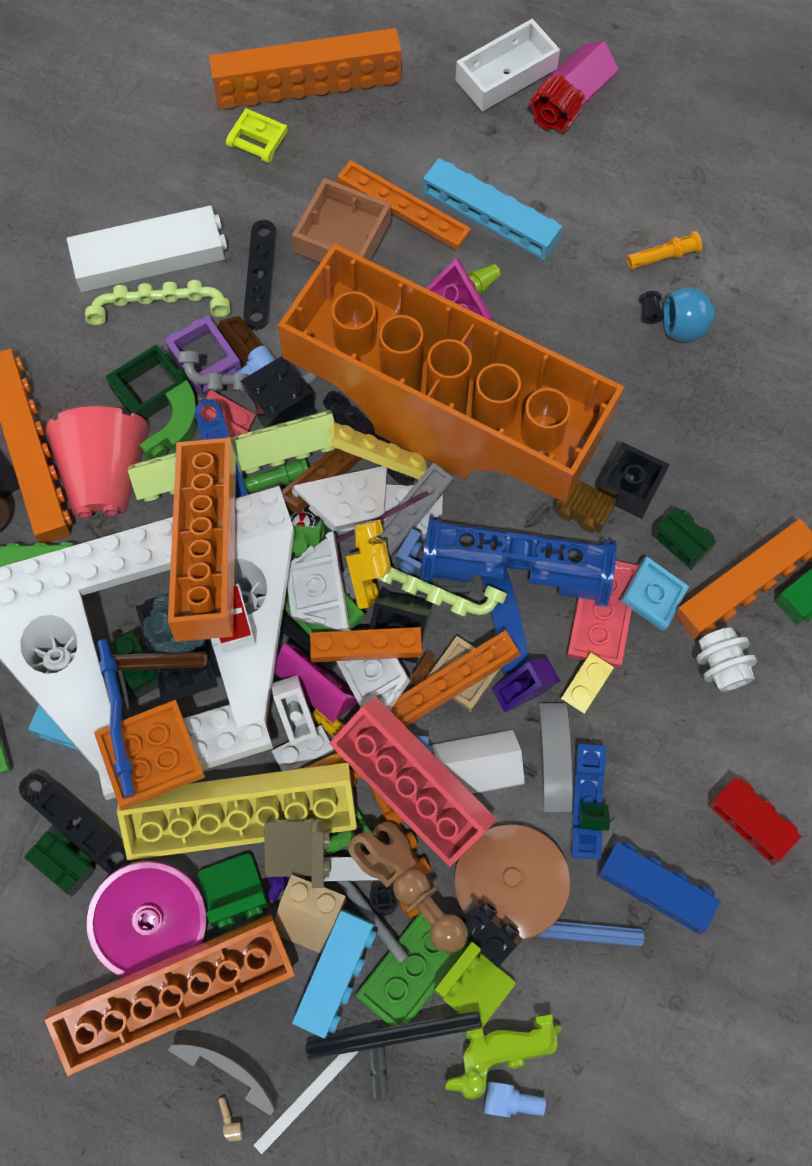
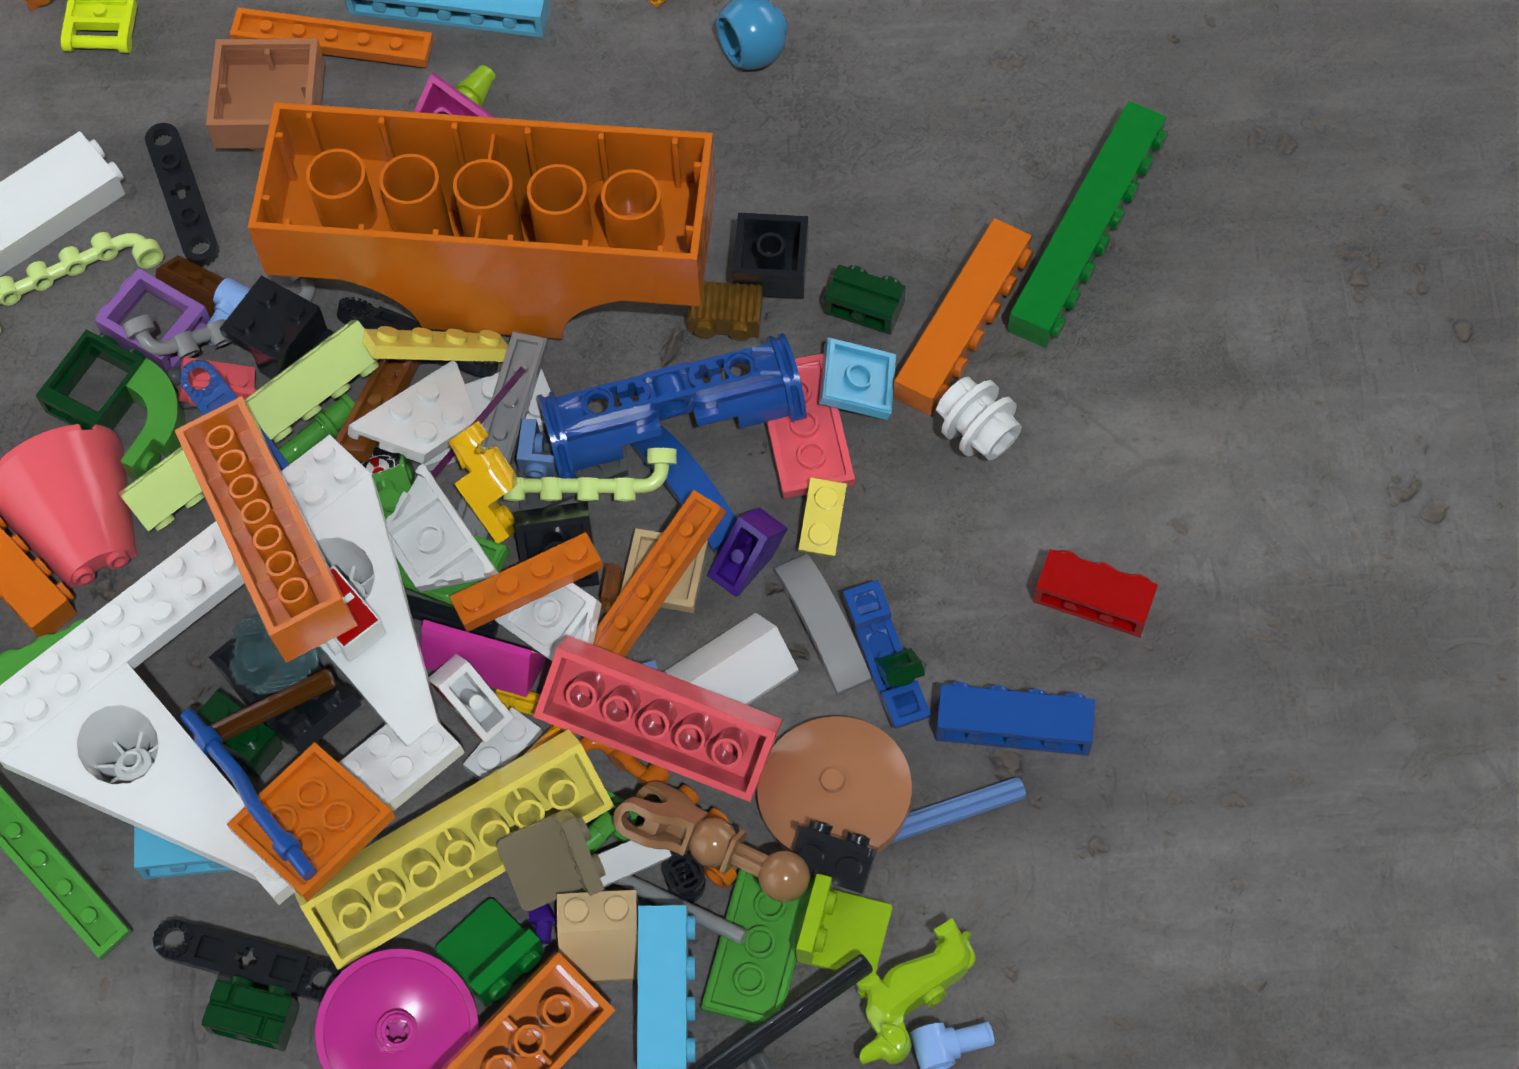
camera: 20 degrees left, 5 degrees down
(651, 307) = (702, 40): black bush -> none

